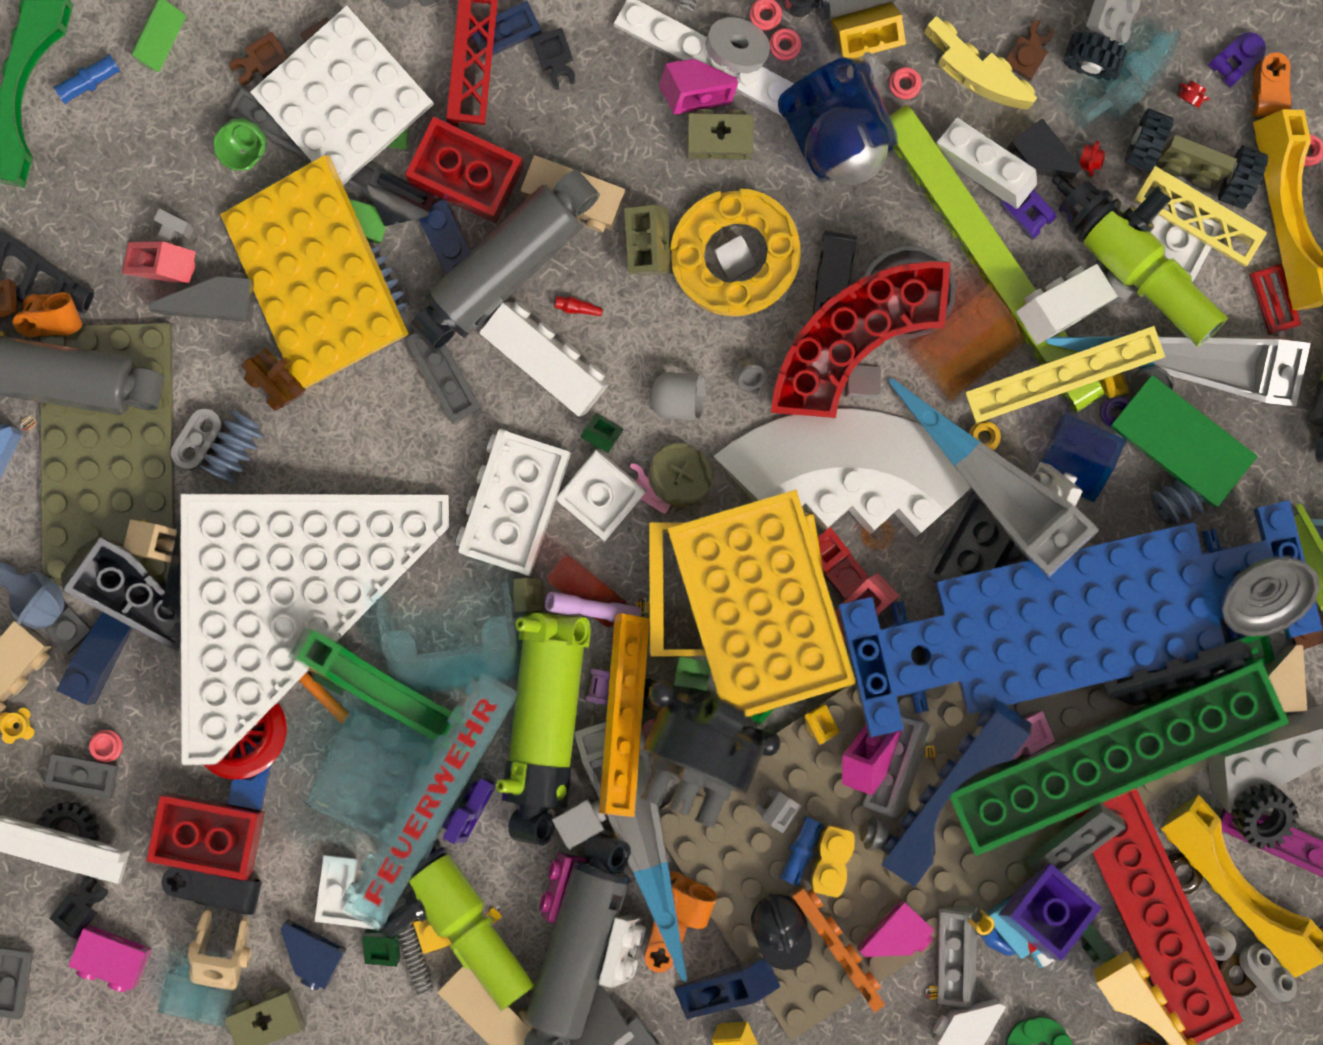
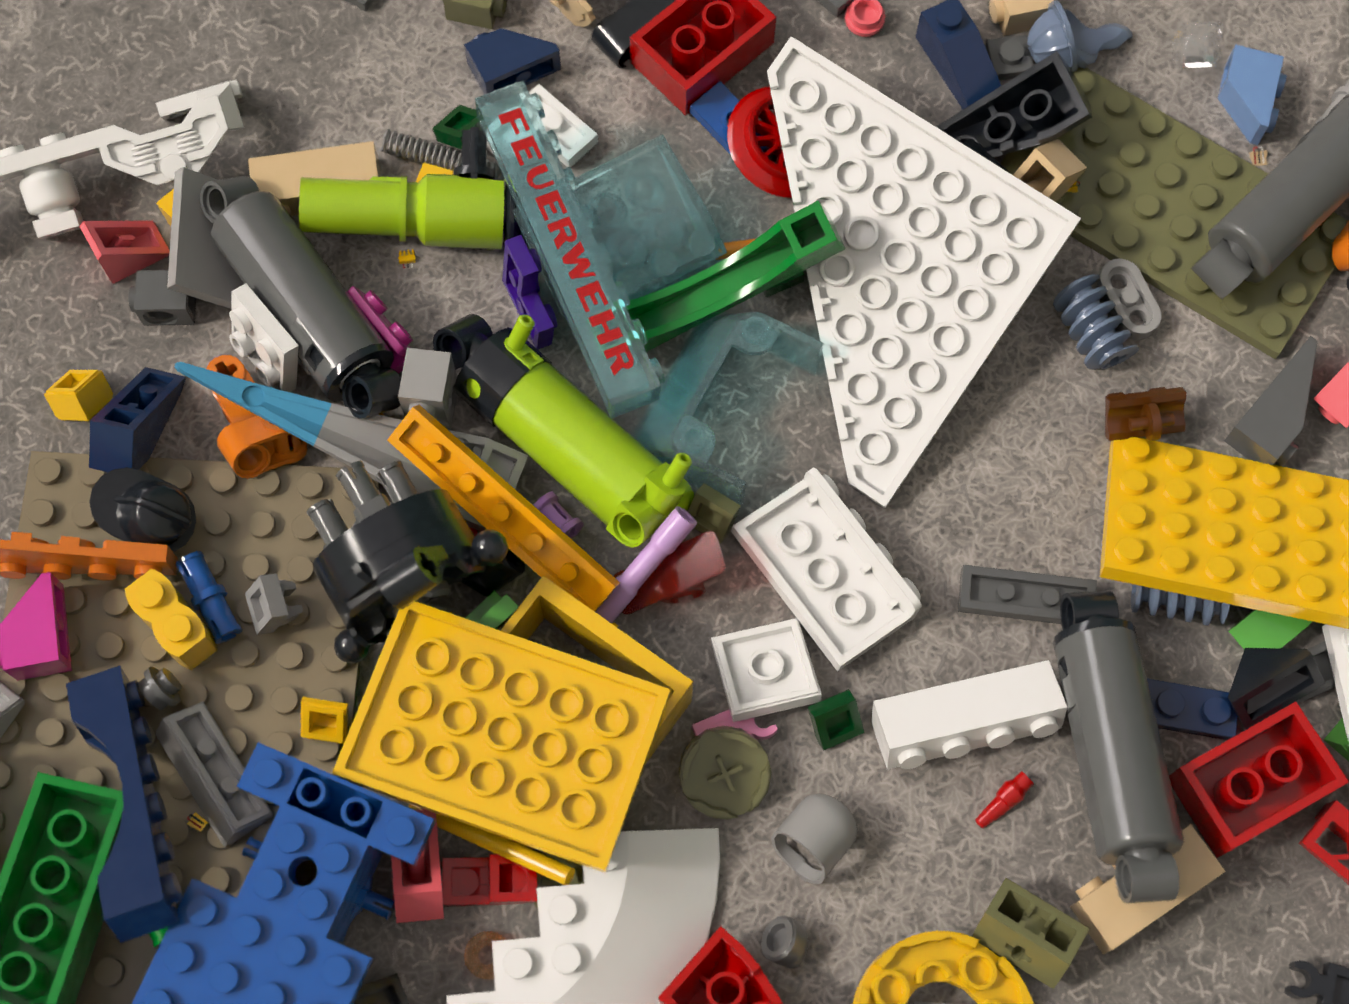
camera: 130 degrees right, 15 degrees down
(868, 760) = (233, 732): dark pink slope -> none
(1040, 735) = (117, 960): bright pink plate -> none

